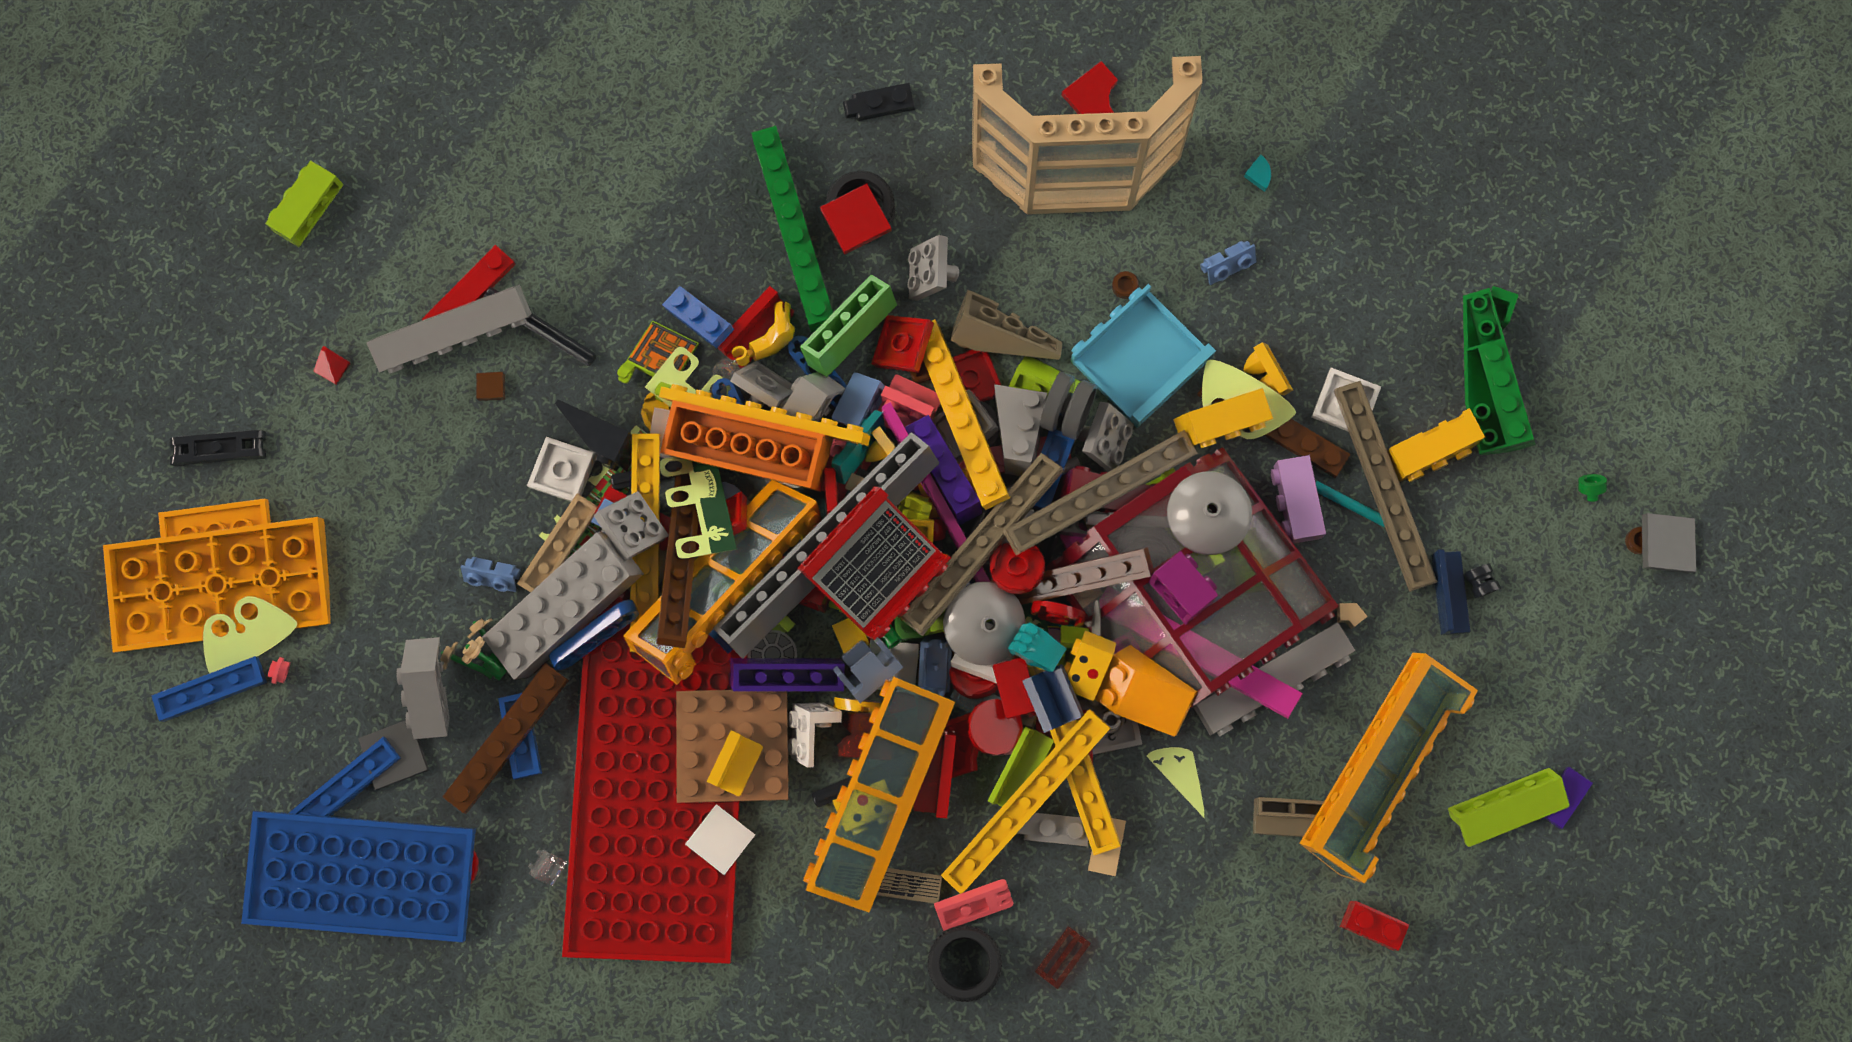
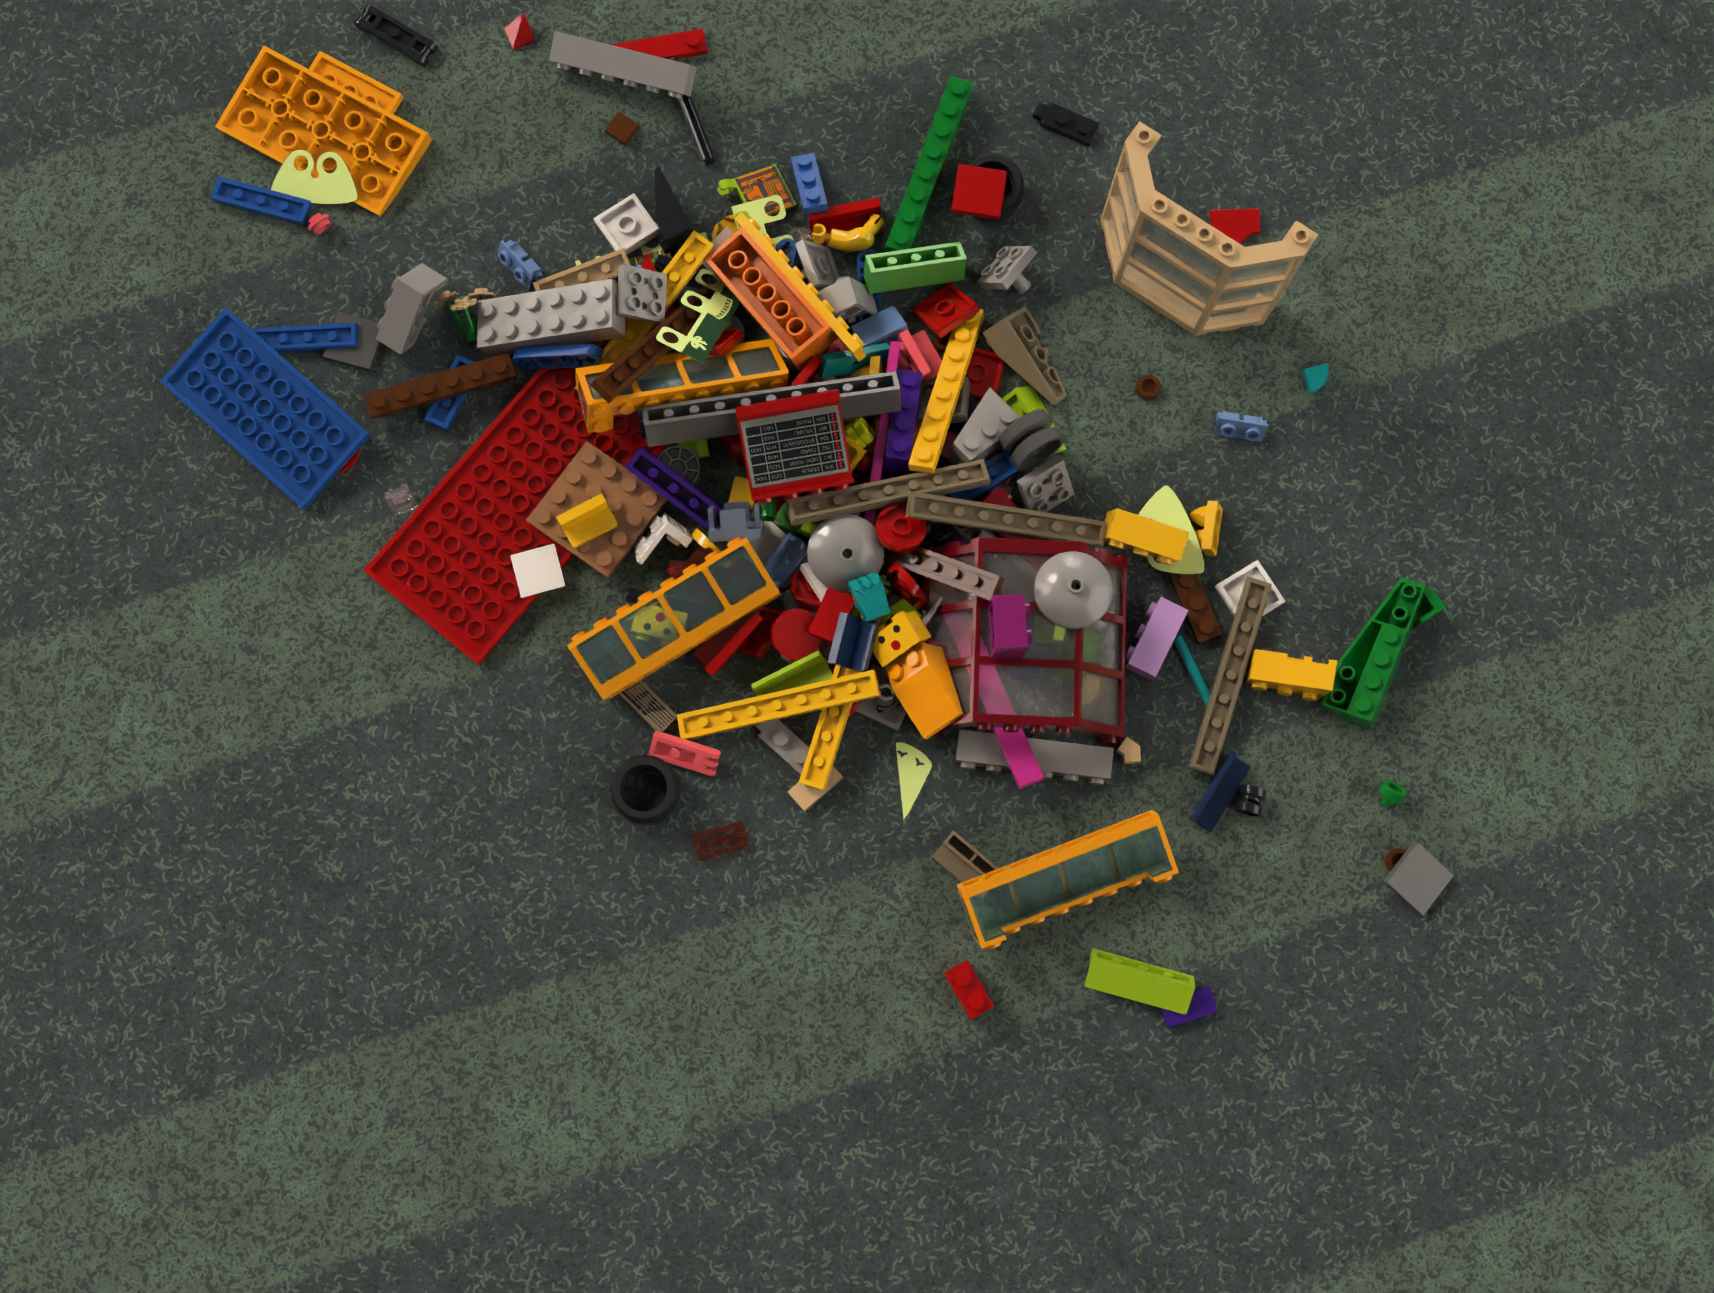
camera: 30 degrees right, 0 degrees up
(1140, 356) = (1118, 447): medium azure panel -> none

